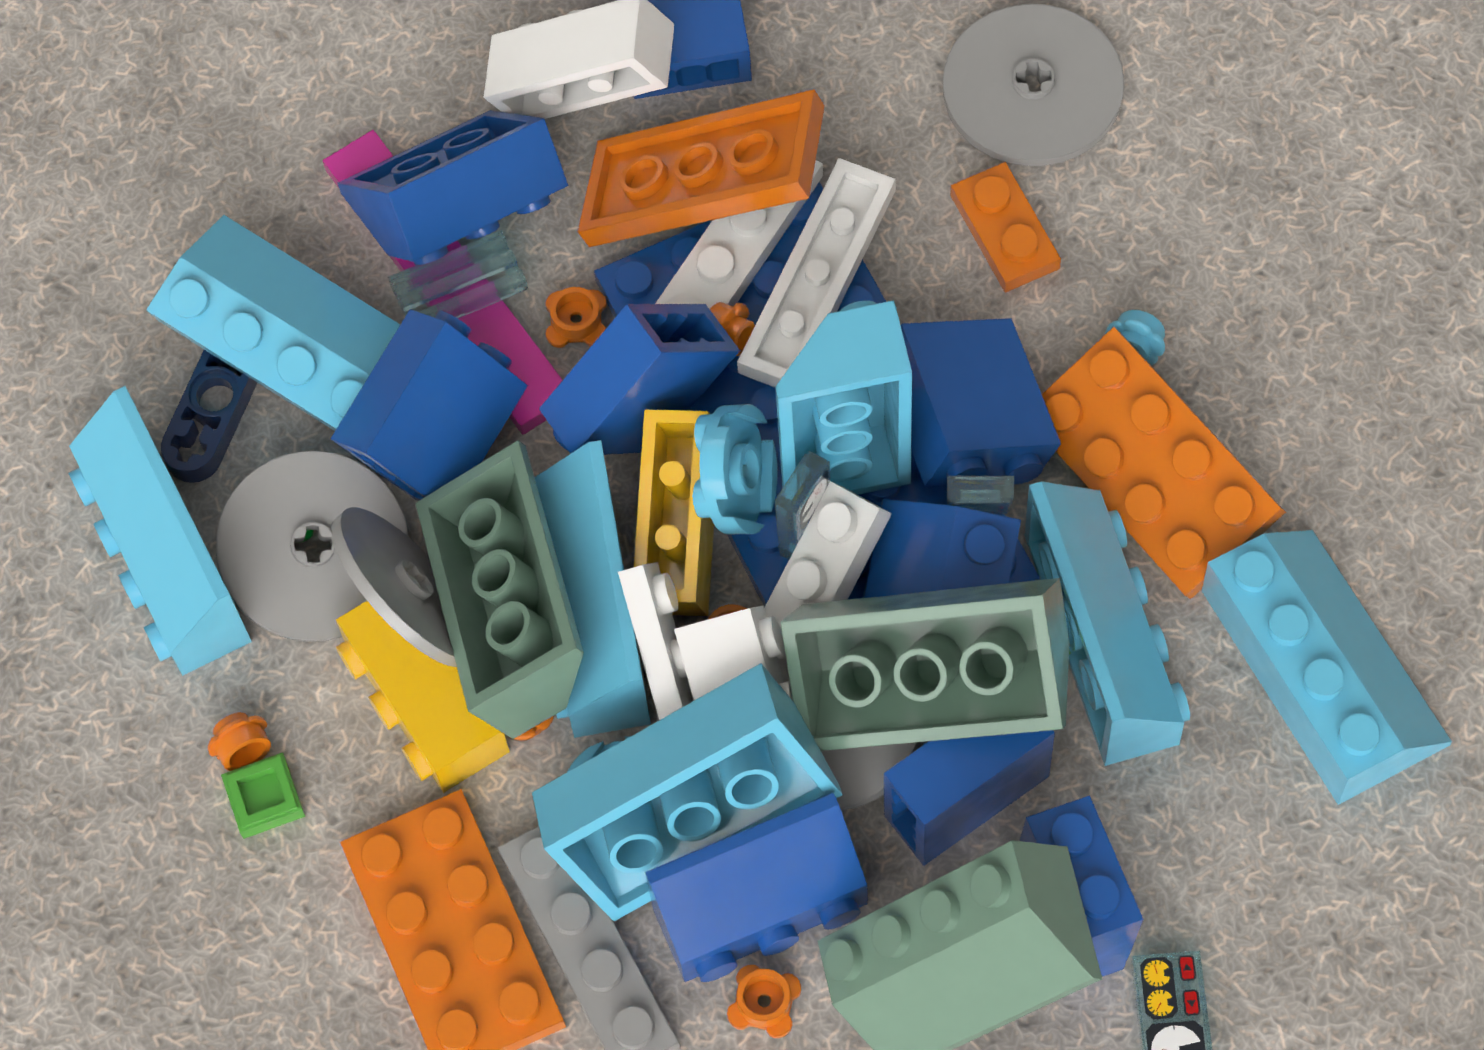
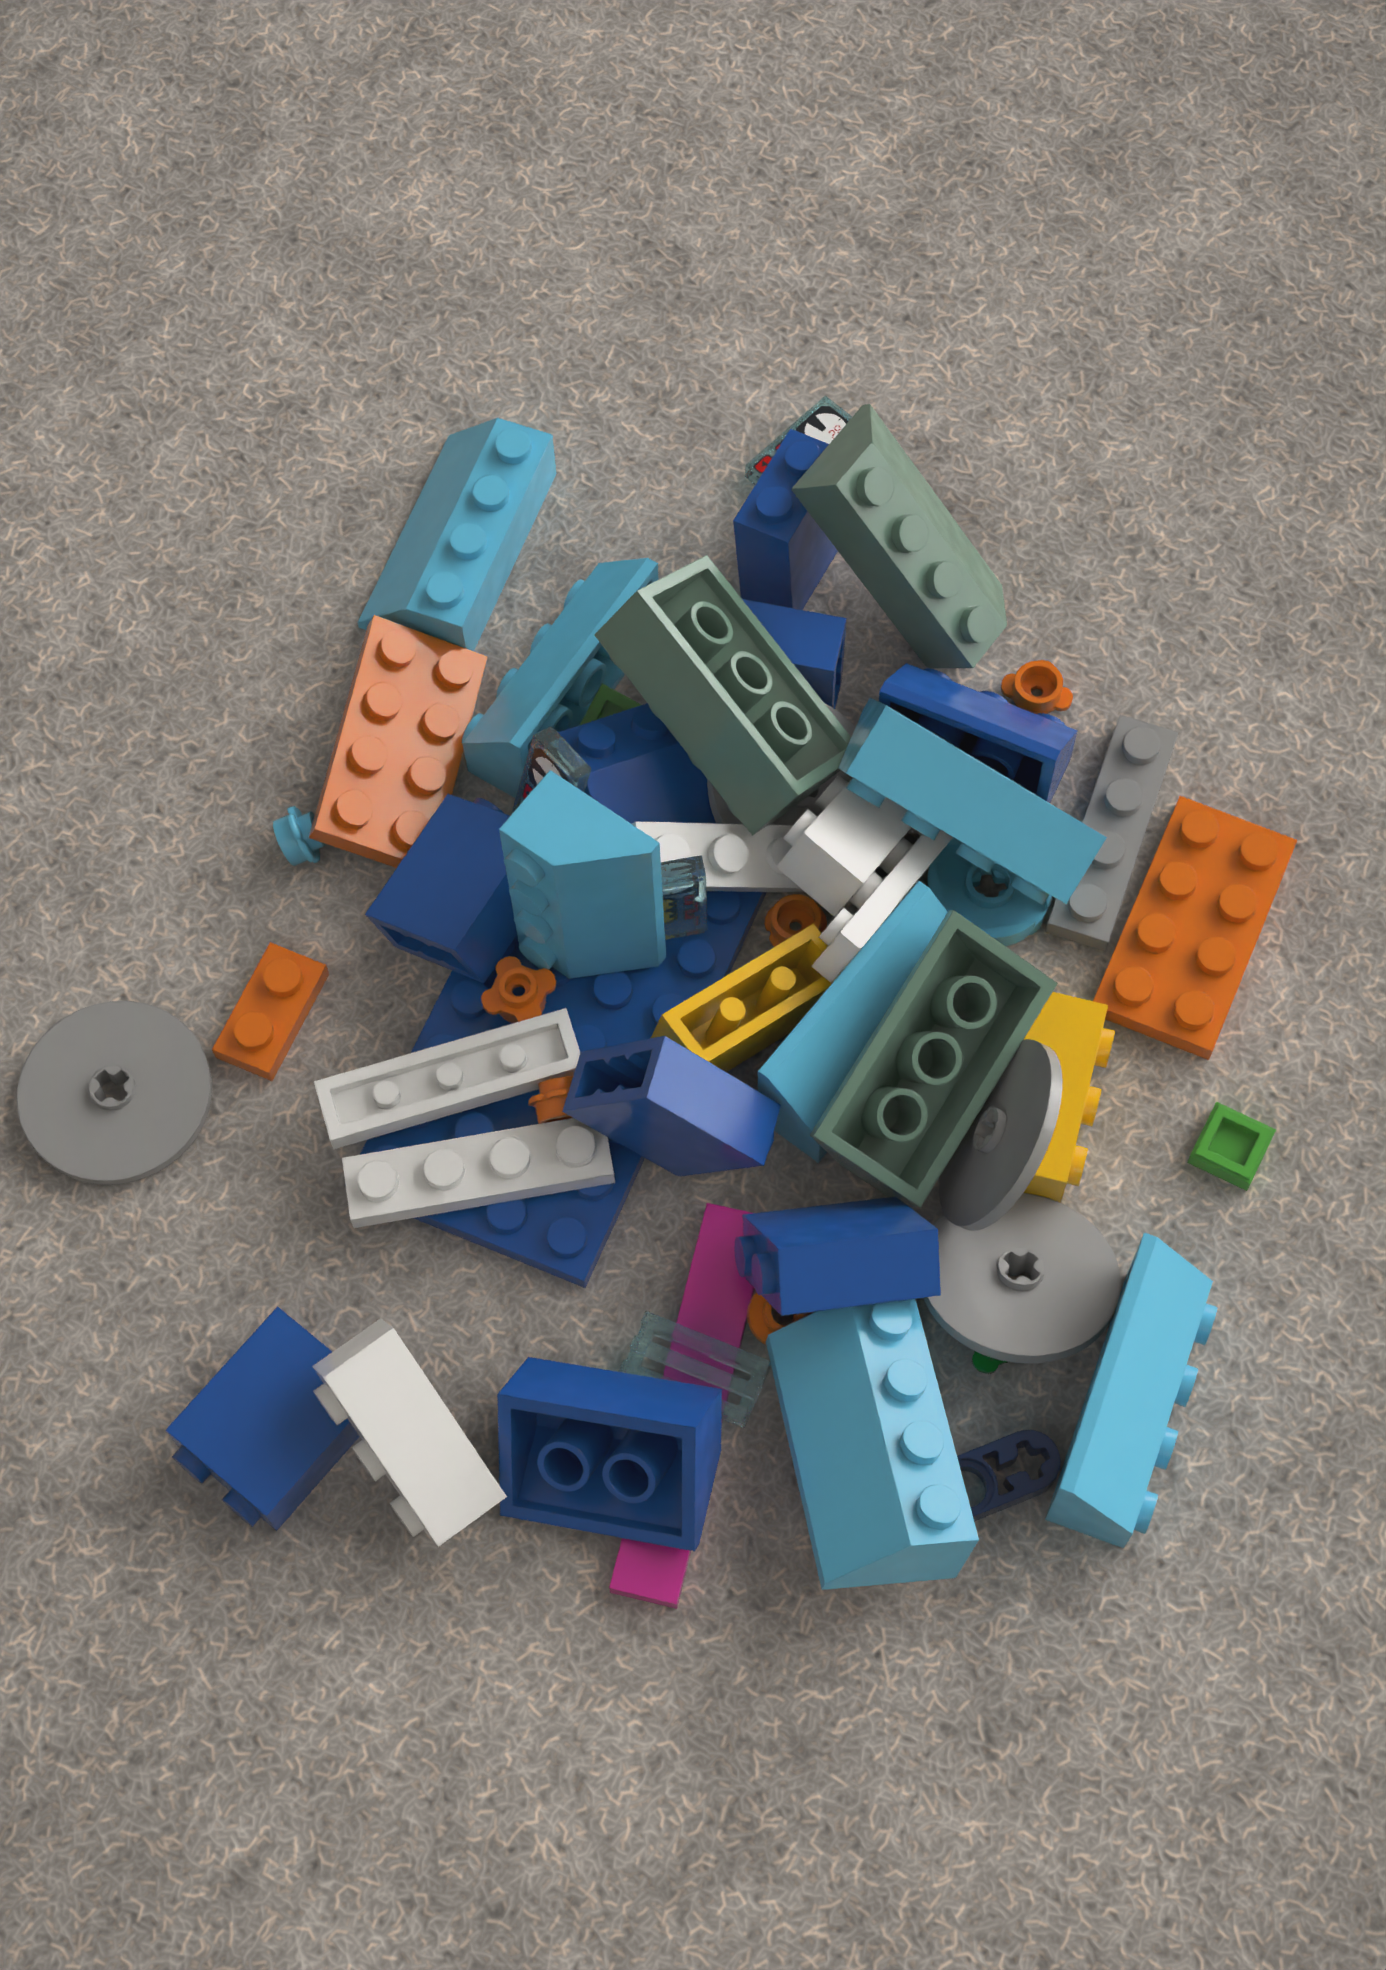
camera: 135 degrees left, 0 degrees up
(239, 740) = (1213, 1194): orange plate -> none
(571, 302) = (636, 1244): orange plate -> none
(702, 169) = (432, 1237): orange plate -> none
(735, 469) = (685, 976): medium azure plate -> none

